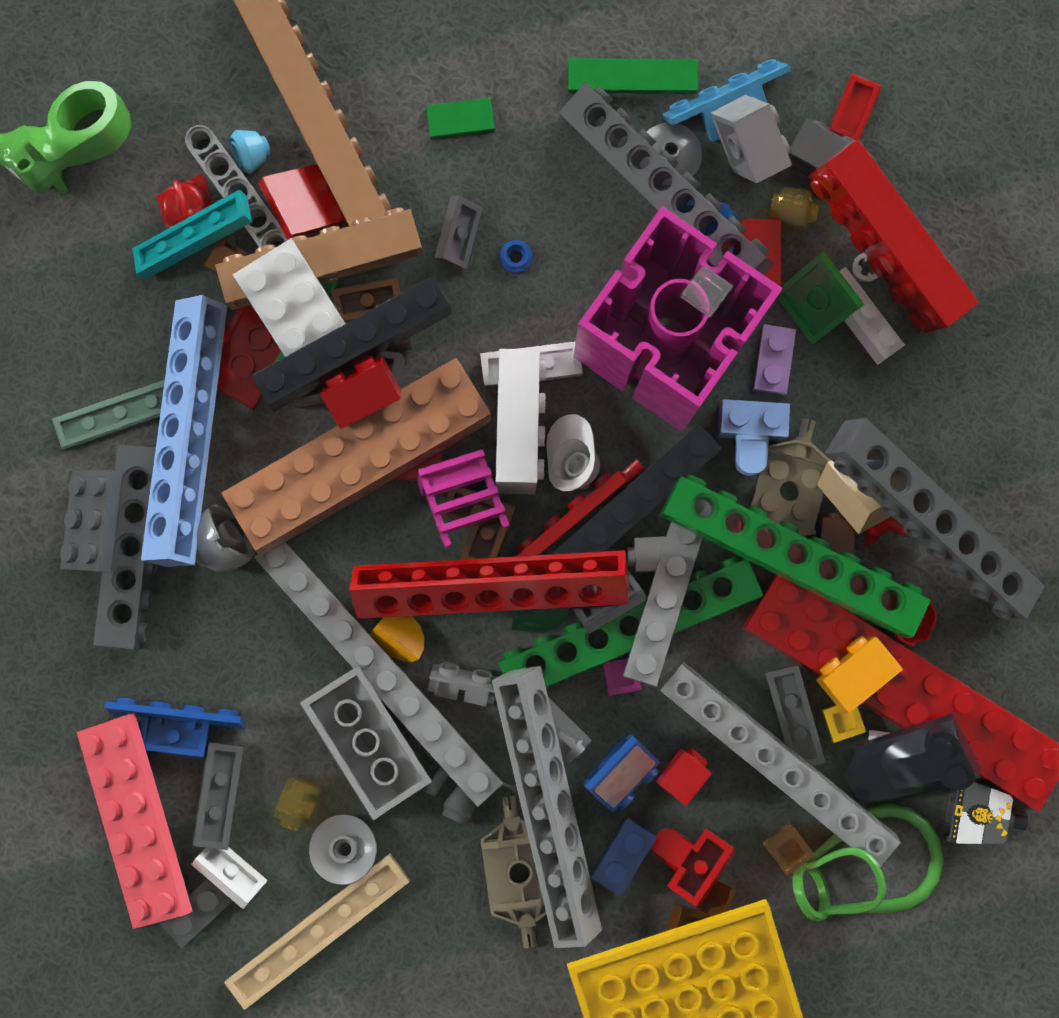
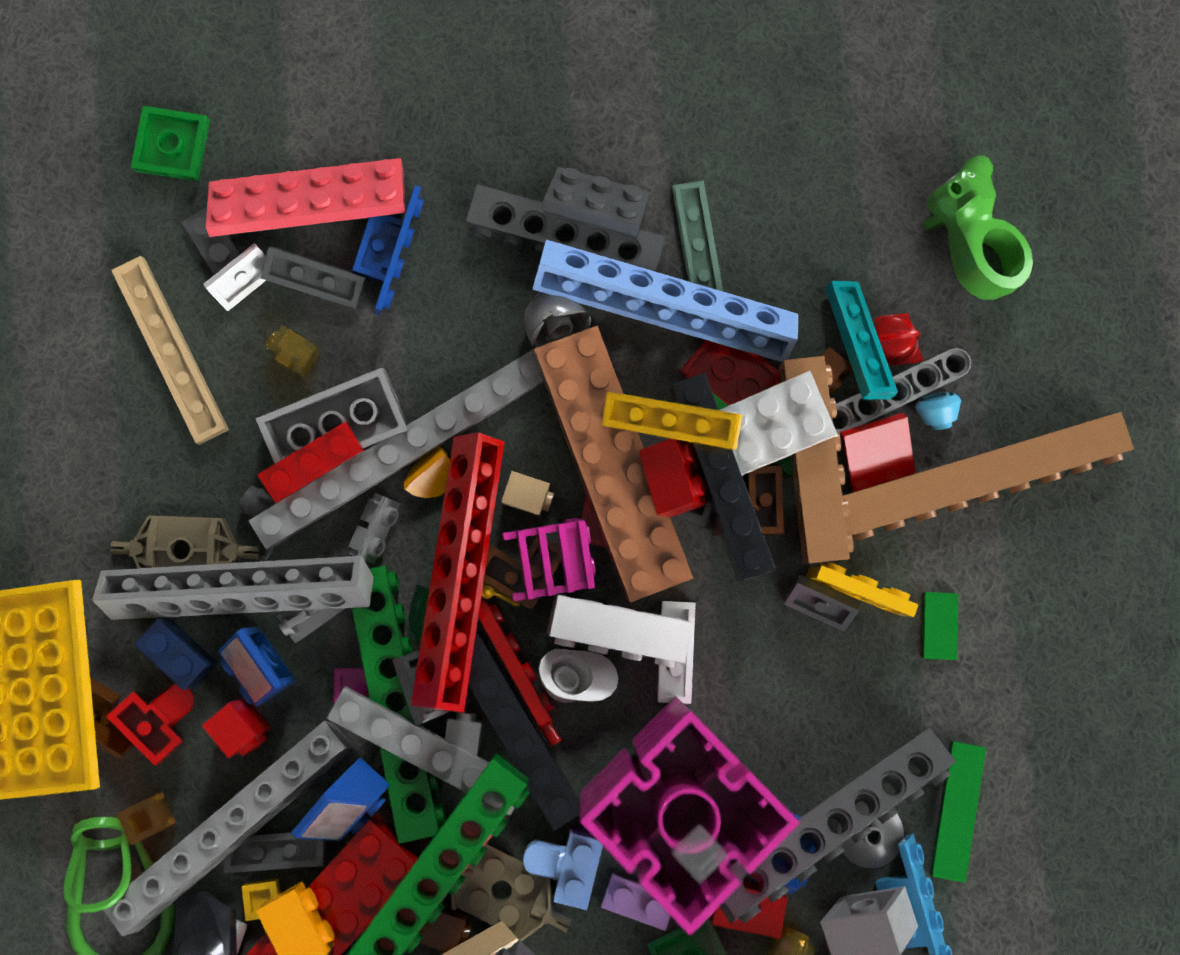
camera: 95 degrees right, 0 degrees up
(98, 978) = (170, 143): none -> green plate
(304, 399) = (672, 420): none -> yellow tile
(326, 853) = (231, 372): light grey dish -> none
(402, 536) = (527, 494): none -> tan brick
(408, 754) = (310, 462): none -> red plate
(438, 194) = (863, 589): none -> yellow plate
(505, 550) = (488, 591): none -> yellow piece
(516, 246) = (799, 656): blue plate -> none
(736, 654) = (344, 805): none -> blue slope

